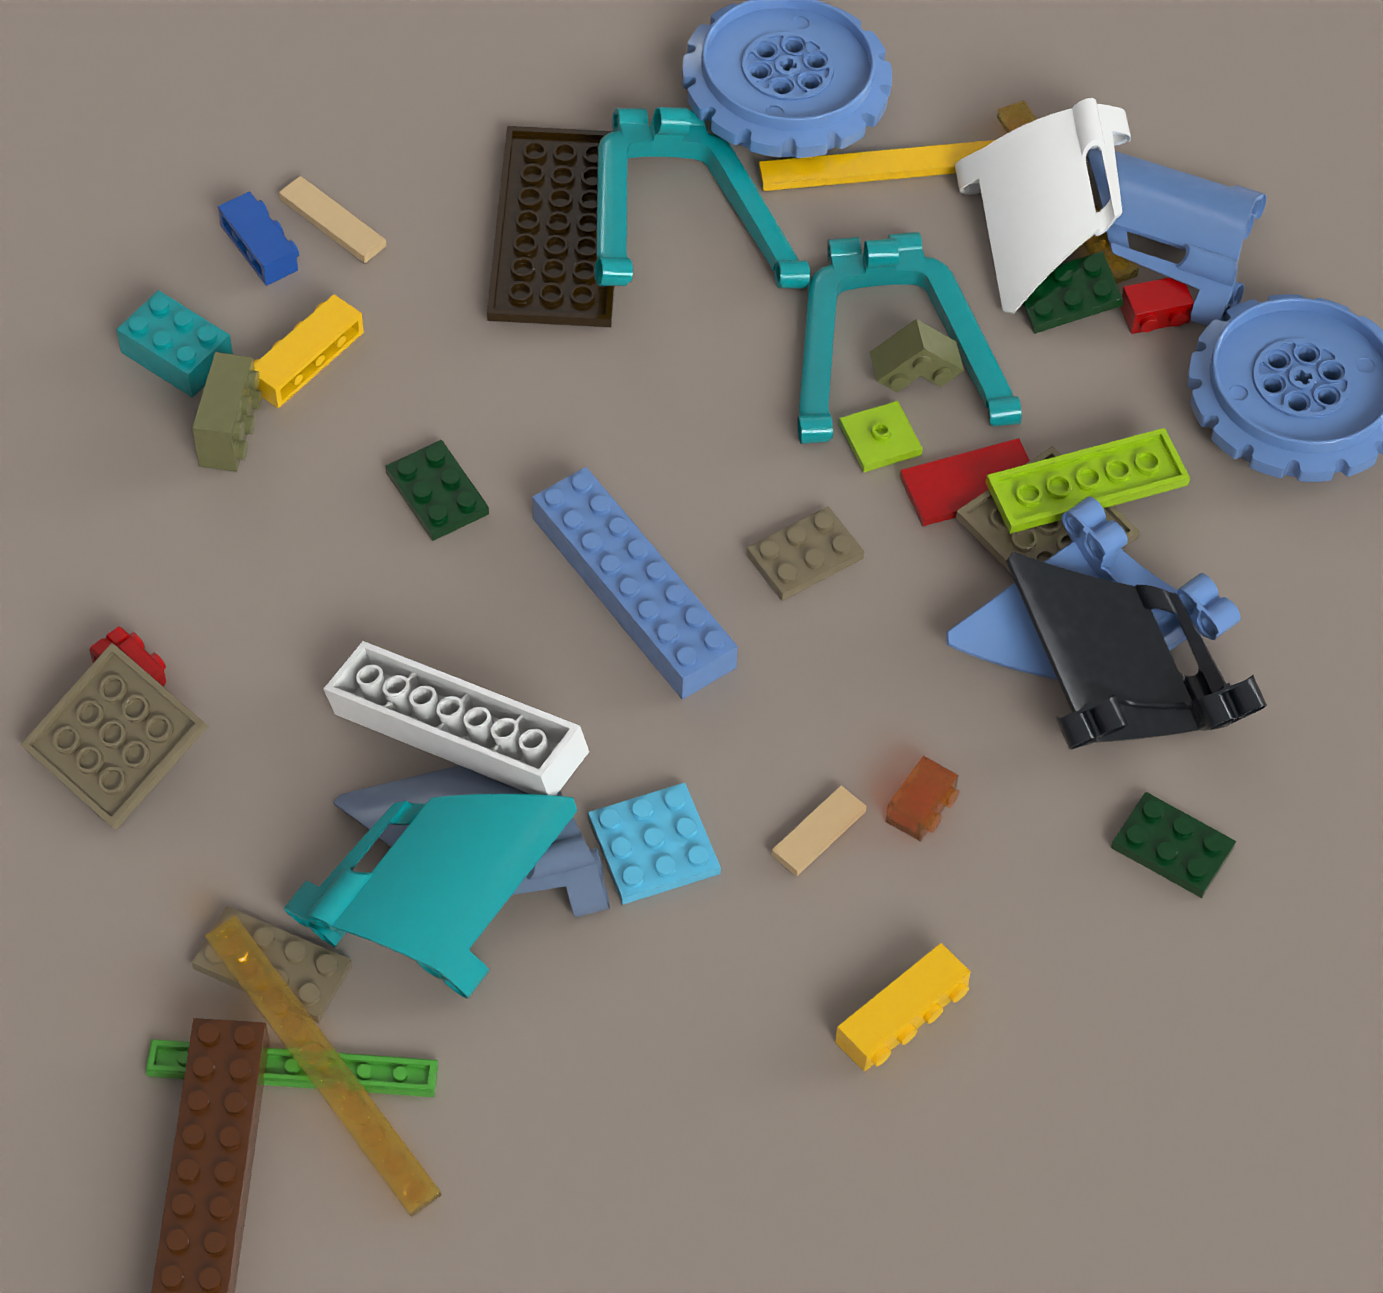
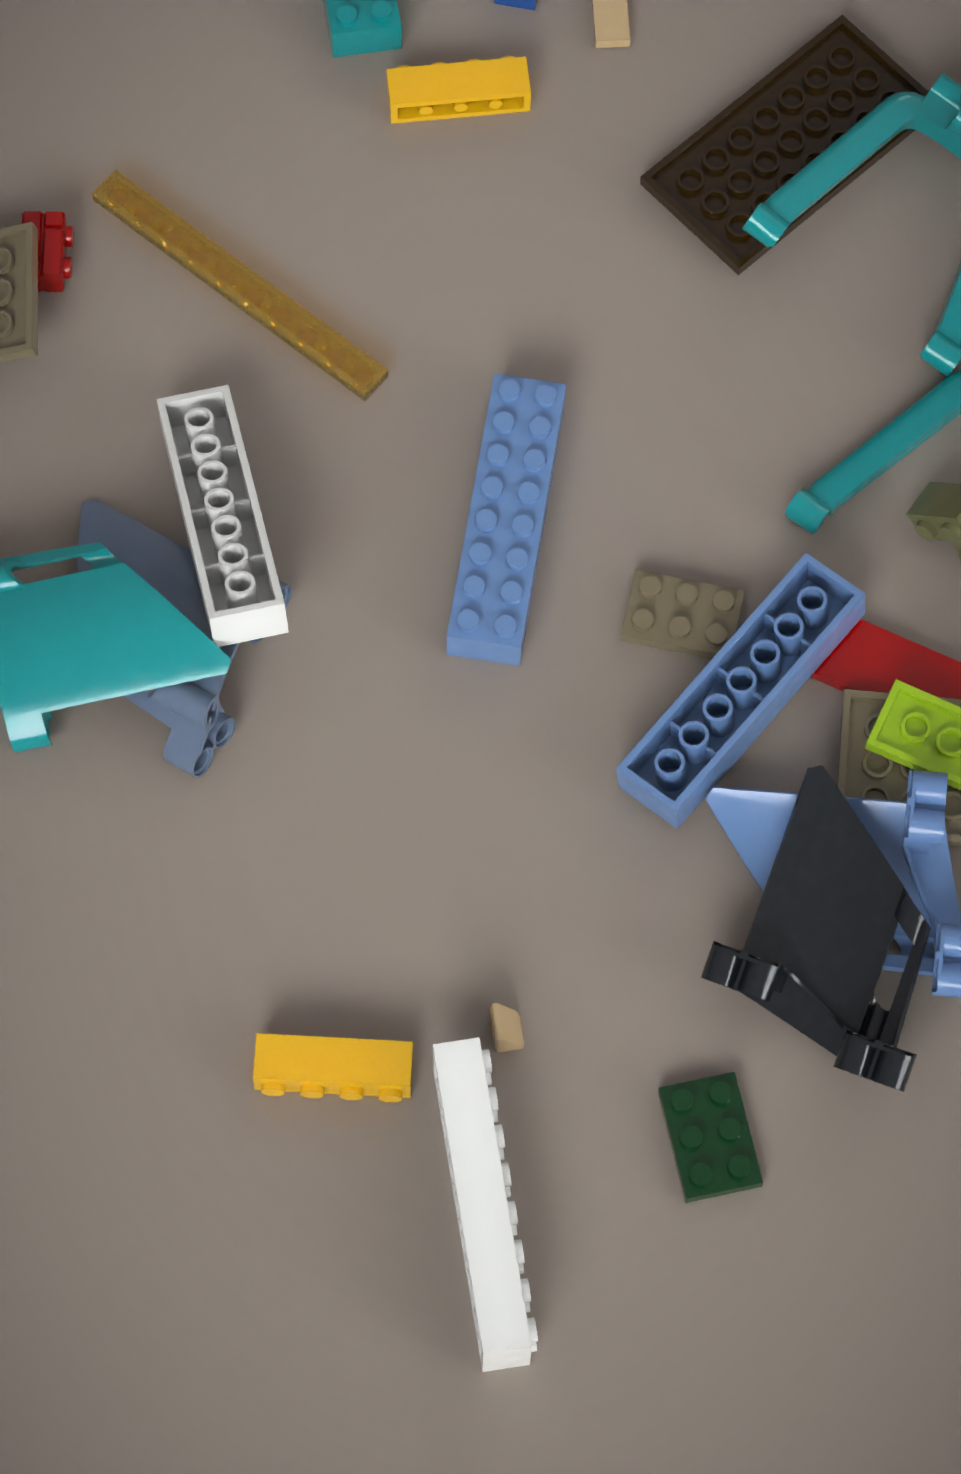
camera: 45 degrees right, 10 degrees up
(226, 412) = (331, 92): olive brick -> none
(288, 581) = (240, 285): none -> clear yellow plate
(437, 490) = (439, 302): dark green plate -> none
(654, 843) = (291, 755): medium azure plate -> none
(818, 830) = (432, 862): tan tile -> none
(880, 436) = (867, 562): lime plate -> none
(900, 562) = (741, 690): none -> medium blue brick
(922, 798) = (540, 911): clear orange brick -> none
(979, 892) = (505, 1028): none -> tan slope
(1096, 1002) = (481, 1204): none -> white brick

